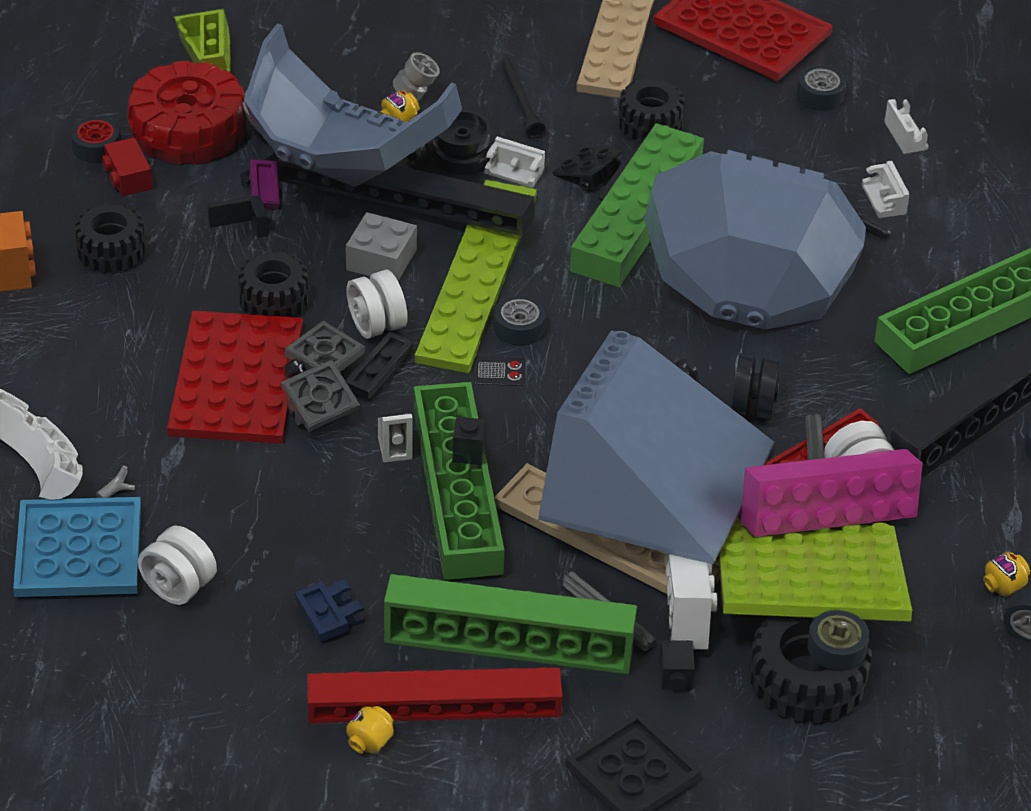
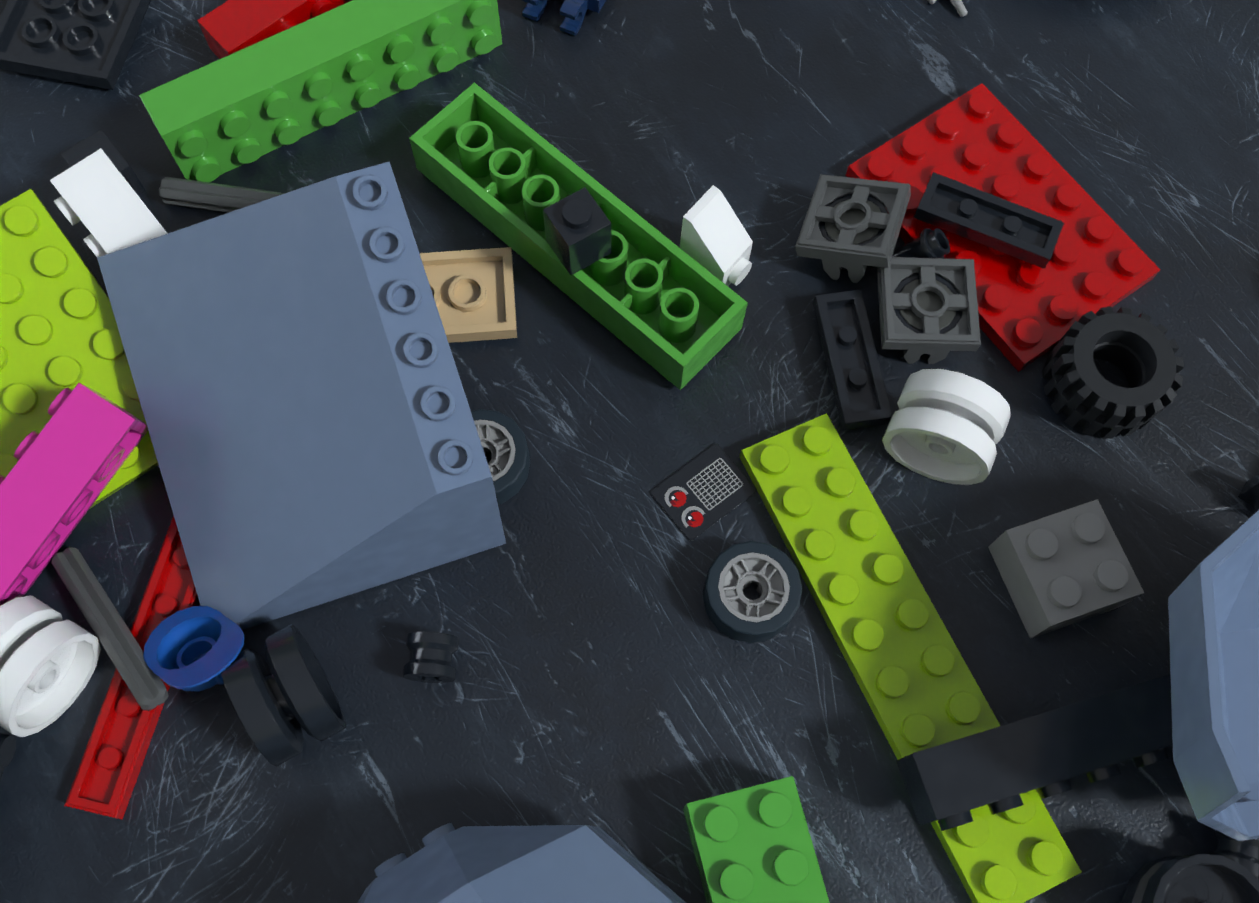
camera: 140 degrees right, 25 degrees up
(255, 359) = (989, 220): none -> black plate
(781, 418) = (193, 648): none -> blue piece

